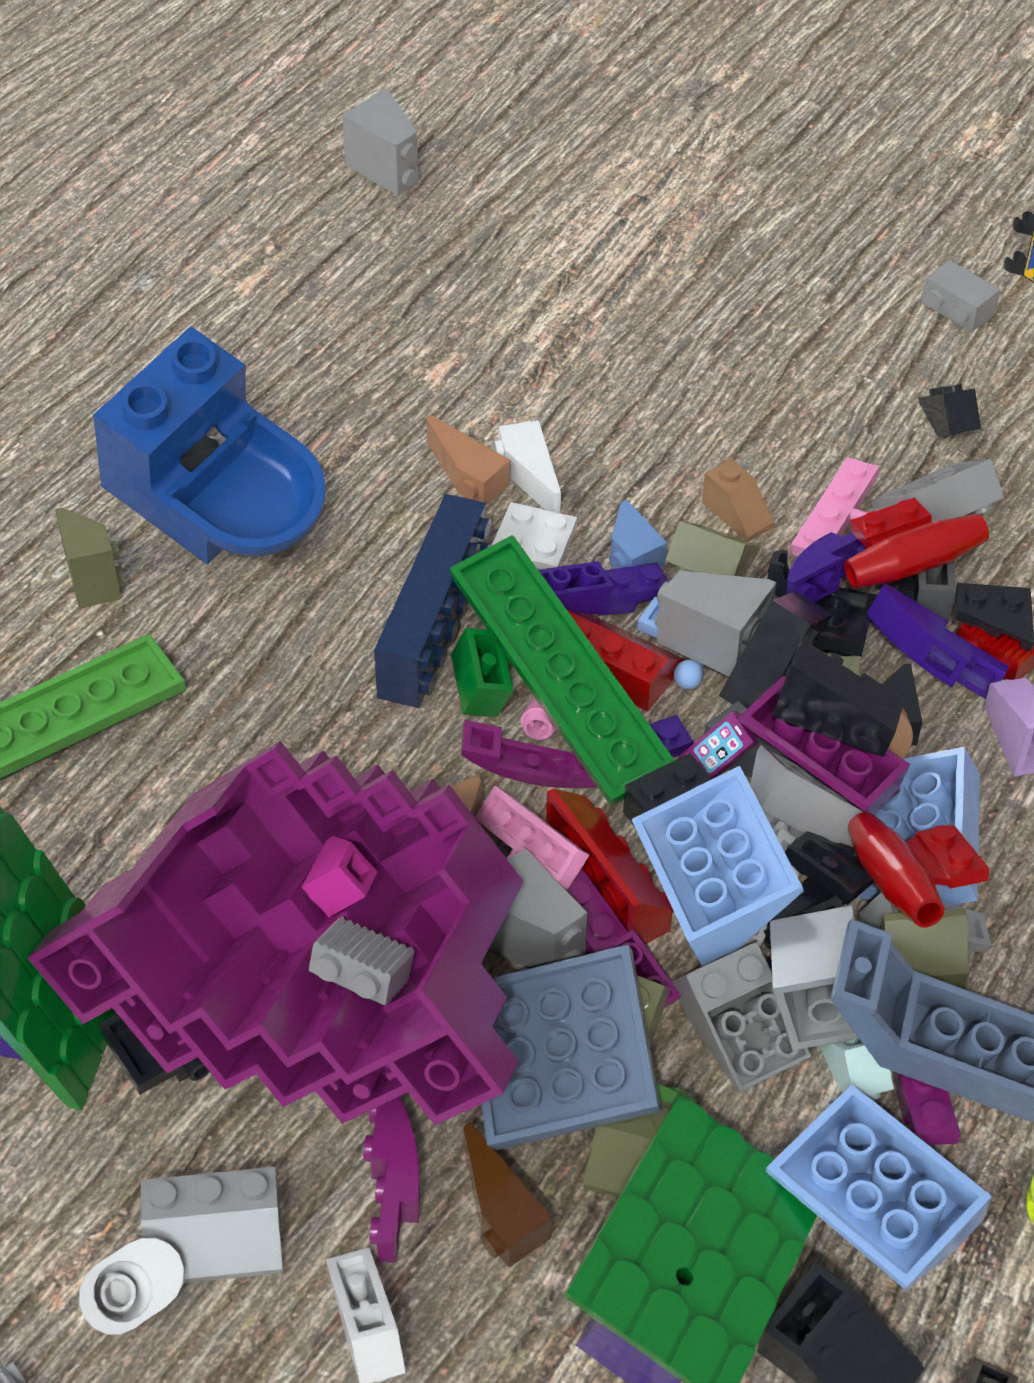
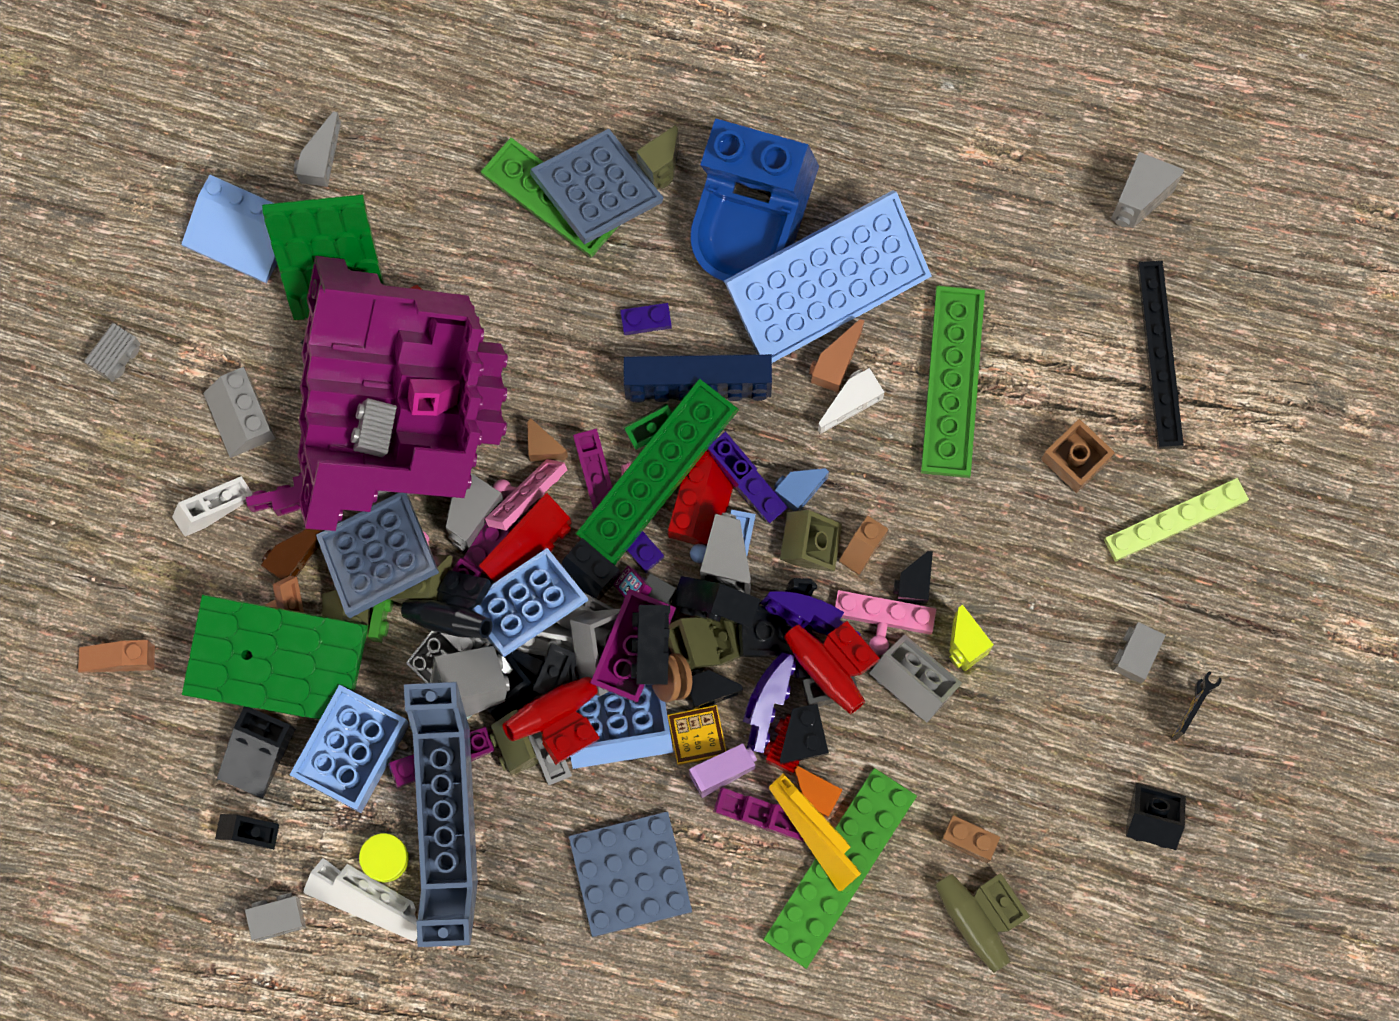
camera: 75 degrees right, 25 degrees up
(84, 642) = (596, 186): none -> sand blue plate
(131, 1286) = (188, 385): white piece -> none
(310, 651) = (646, 319): none -> dark purple plate
(357, 428) = (828, 277): none -> light blue plate
(540, 533) = (789, 423): white plate -> none
(547, 368) = (953, 382): none -> bright green plate
(575, 1221) = (287, 595): none -> nougat slope
(590, 191) = (1160, 355): none -> black plate
(694, 278) = (1077, 455): none -> medium nougat brick
(694, 955) = (453, 608): none -> black plate
(800, 234) = (1176, 519): none -> yellowish green plate
(803, 463) = (914, 581): none -> black slope
(903, 427) = (967, 641): none -> neon yellow slope
(951, 409) = (1007, 669): black slope -> none
(954, 731) = (696, 734): none -> tile

